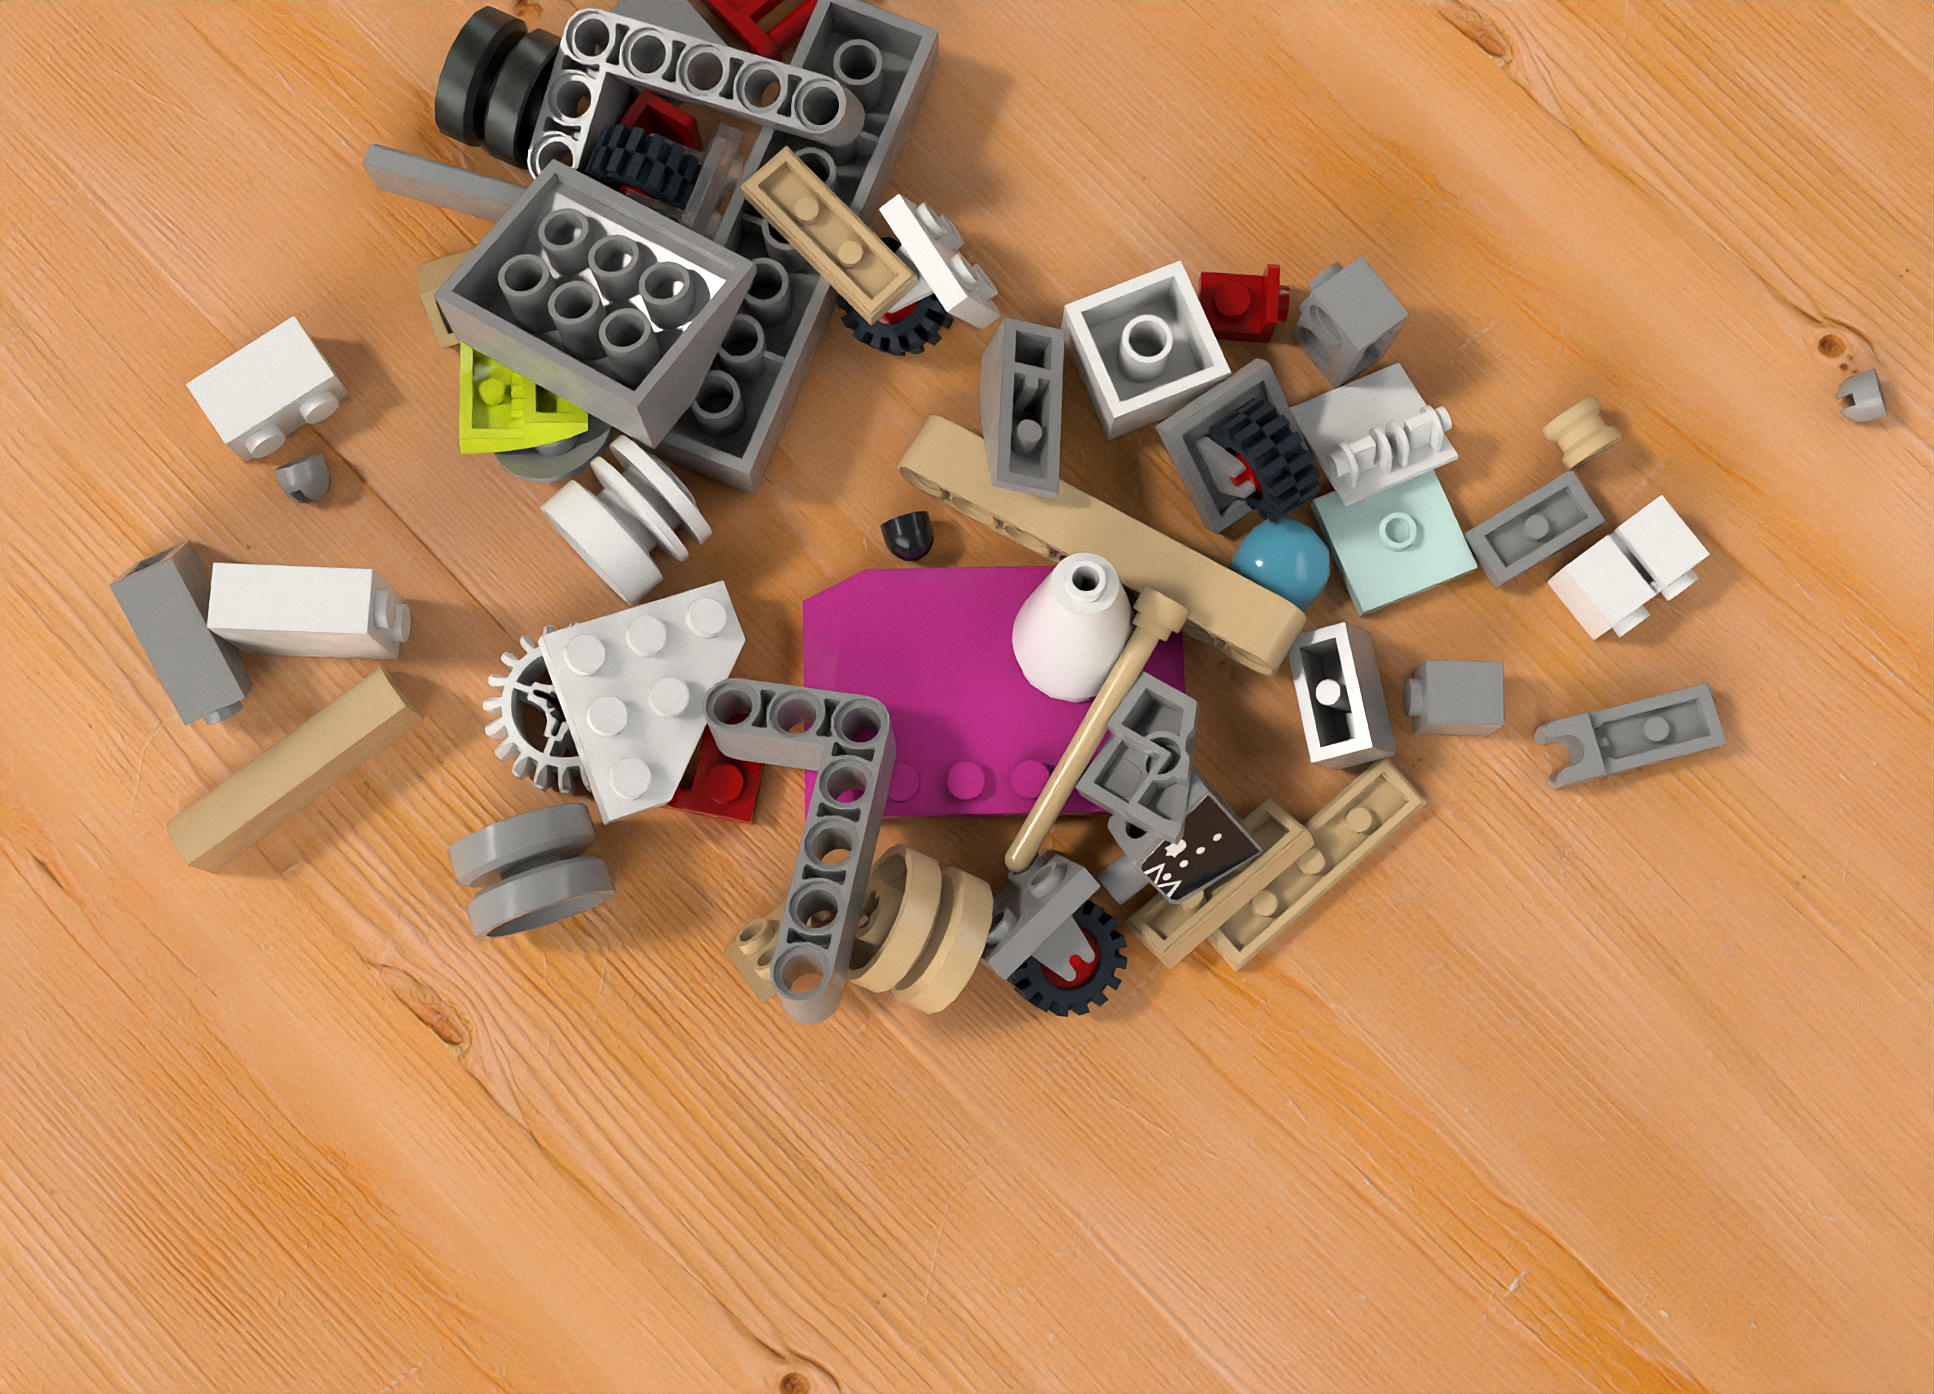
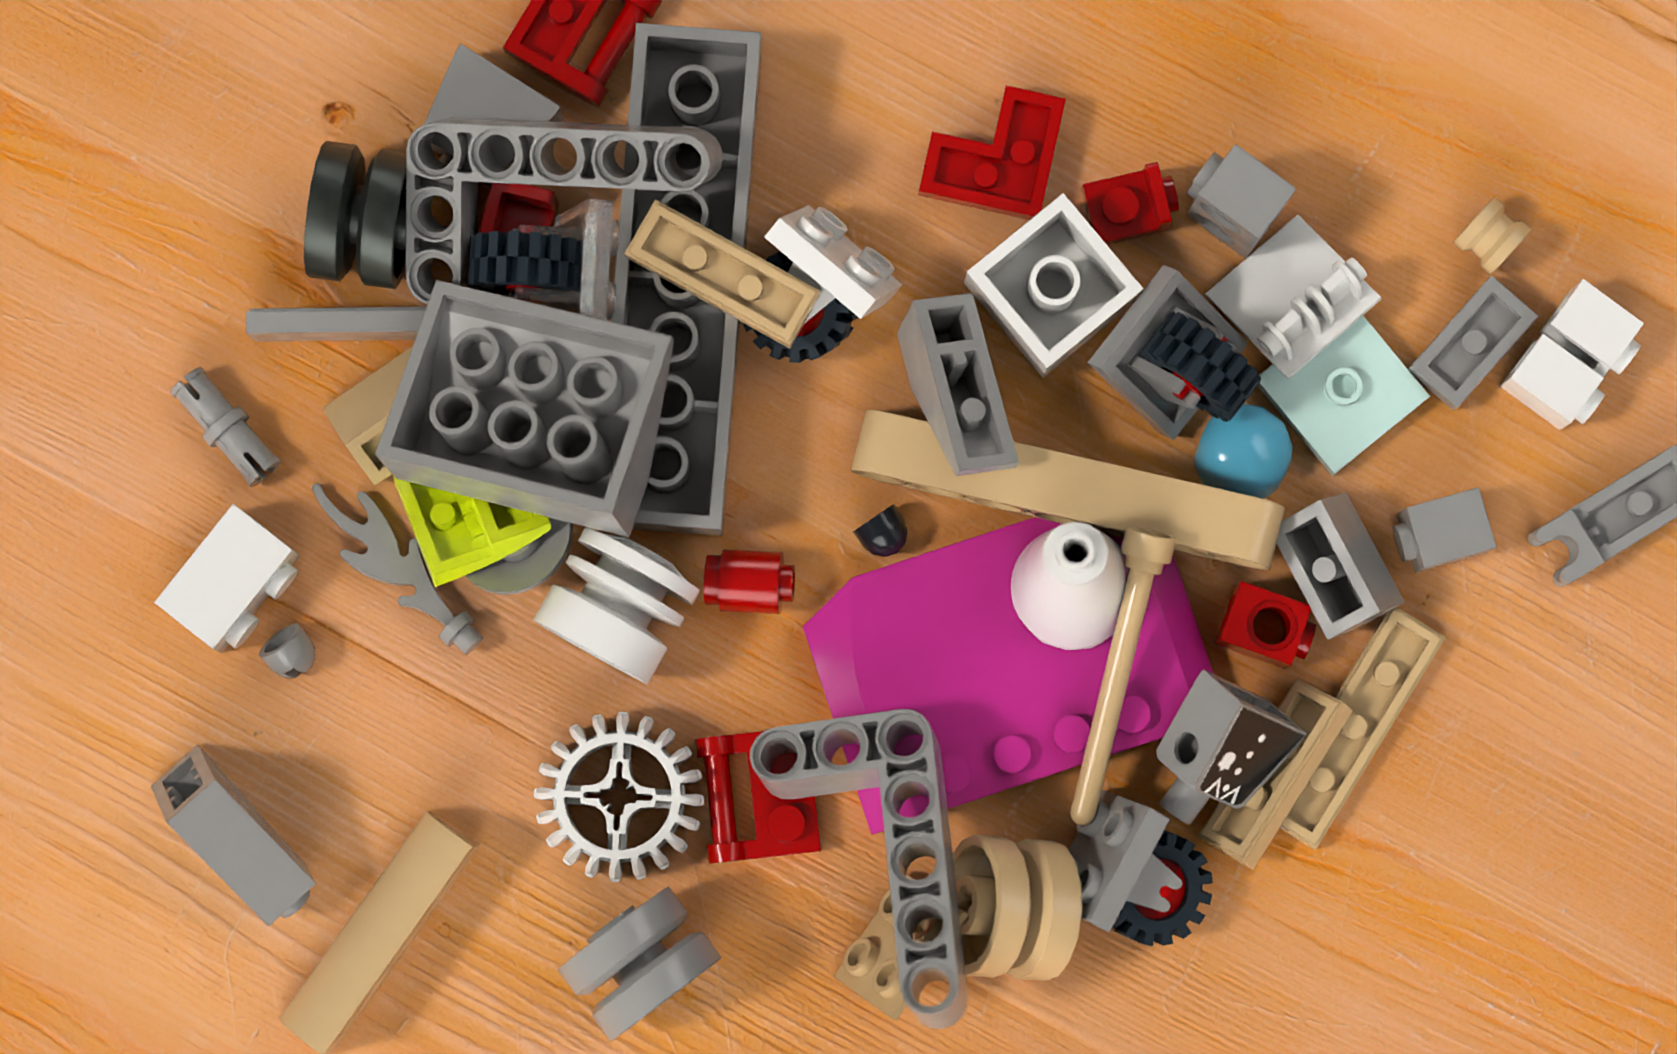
camera: 15 degrees left, 5 degrees up
(307, 611) = (349, 784): white brick -> none
(319, 252) = (225, 426): none -> light grey pin
(426, 425) = (386, 565): none -> light grey piece
(638, 692) = (686, 766): white plate -> none
(764, 542) = (748, 581): none -> red brick
(1129, 238) = (1000, 176): none -> red plate
(1147, 759) = (1176, 688): light grey slope -> none
(1246, 708) = (1238, 633): none -> red brick

